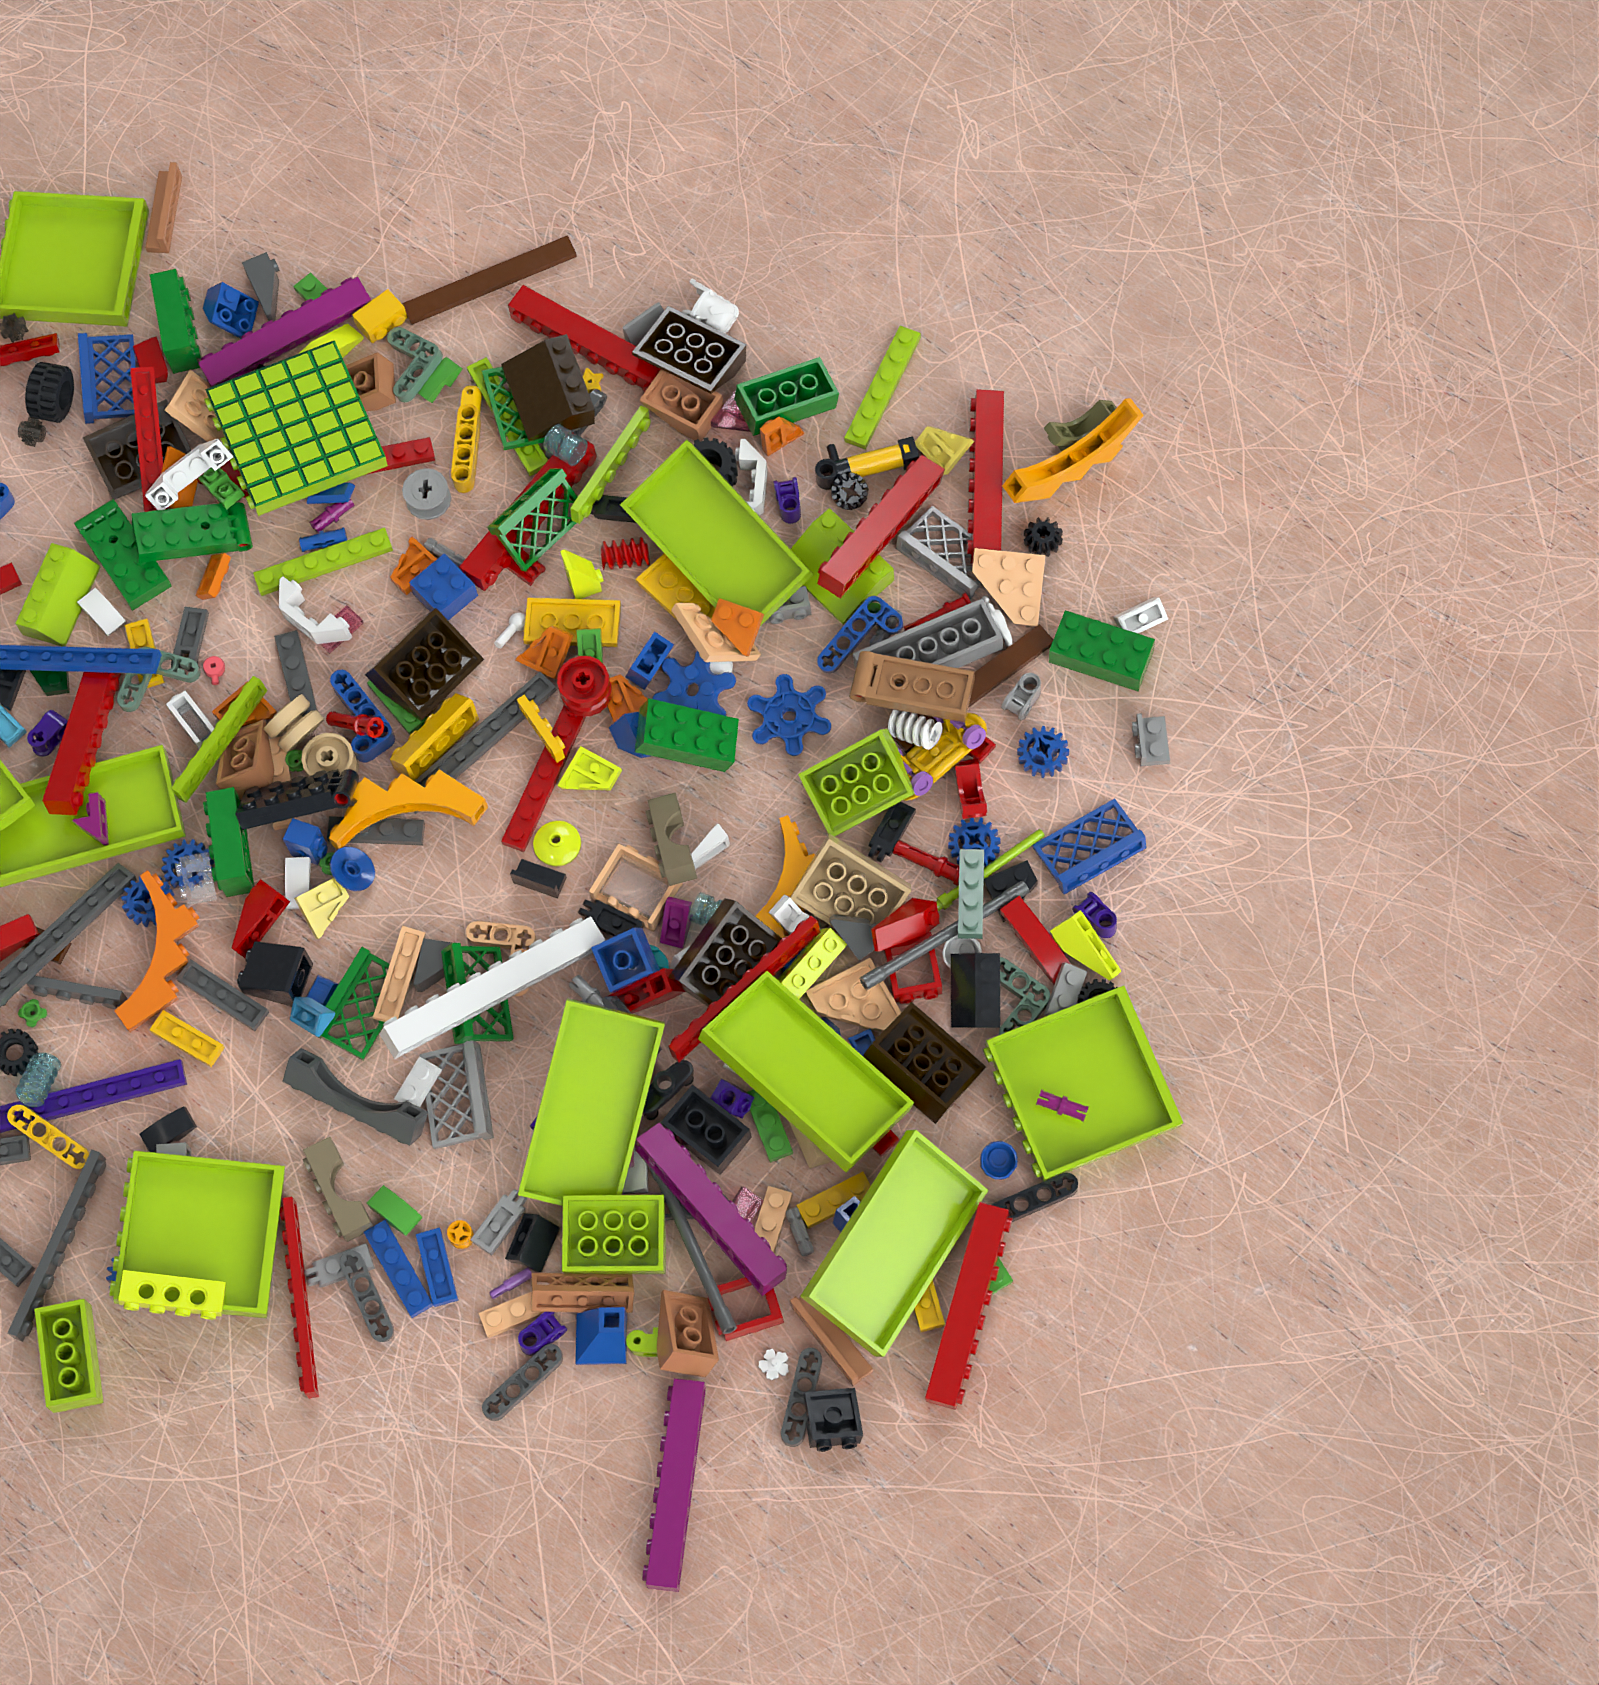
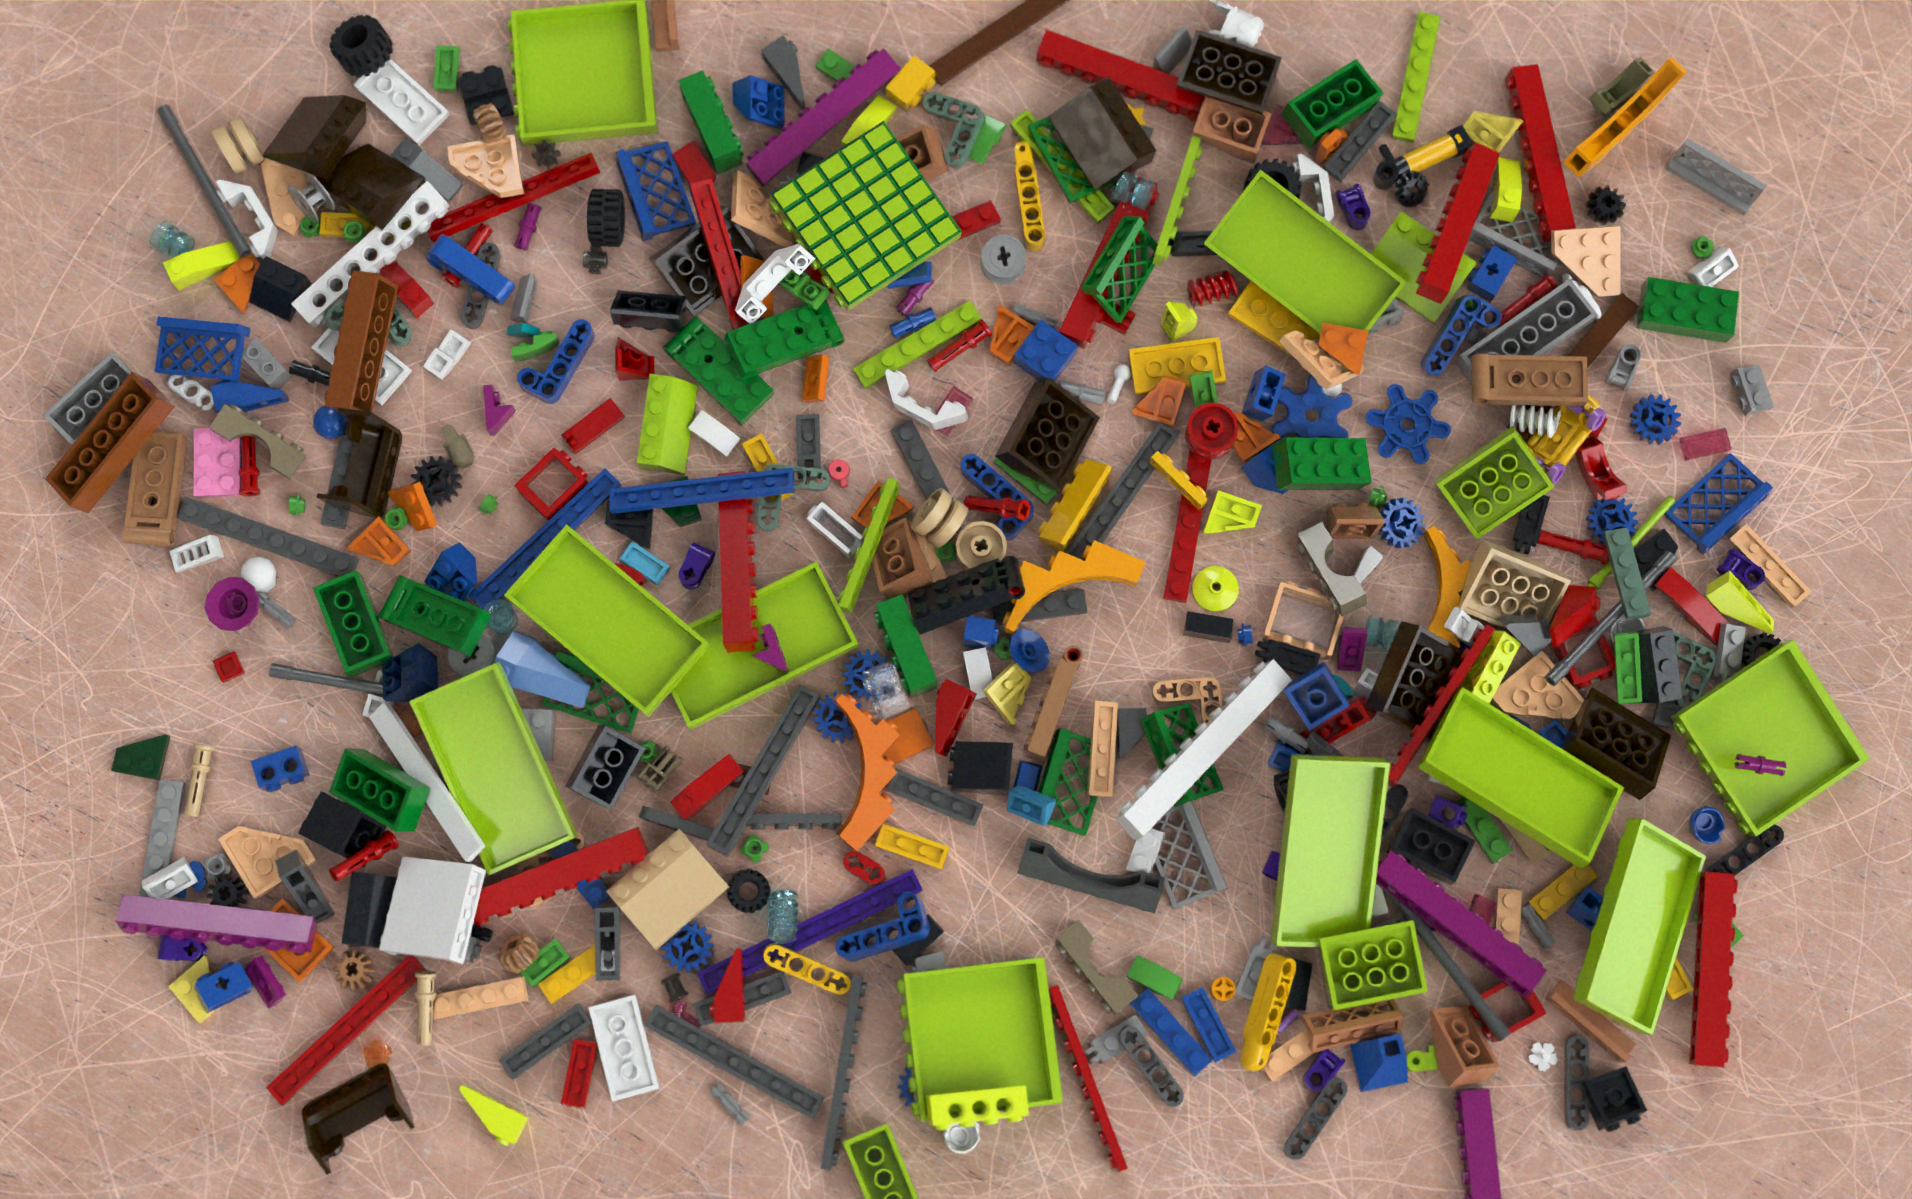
camera: 20 degrees left, 10 degrees up
(39, 532) = (631, 362): none -> red slope
(67, 486) = (649, 311): none -> black slope
(138, 1046) = (861, 873): none -> red beam
(140, 1117) = (882, 932): none -> blue beam
(158, 1329) = (961, 1139): none -> white hair
(212, 935) = (912, 737): none -> orange piece
(337, 580) = (969, 337): none -> red pin
(360, 921) = (1052, 703): none -> medium nougat hinge
(473, 633) = (1084, 393): none -> light grey axle
(505, 1254) = (1266, 1010): none -> yellow piece
(573, 891) = (1245, 634): none -> blue plate
(706, 799) = (1353, 521): none -> nougat slope
(741, 781) = (1378, 497): none -> bright green plate
(757, 818) = (1407, 531): none -> blue gear
(809, 438) = (1360, 141): none -> dark grey plate
(907, 595) = (1496, 261): none -> blue brick
(944, 506) = (1506, 190): none -> neon yellow slope
(949, 986) = (1627, 667): none -> bright green plate
(979, 1041) = (1663, 714): none -> dark grey plate
(1091, 785) = (1705, 444): none -> clear pink tile
(1128, 915) = (1776, 571): none -> light nougat plate
(1134, 599) = (1698, 251): none -> bright green plate
(1159, 526) = (1715, 177): none -> light grey fence

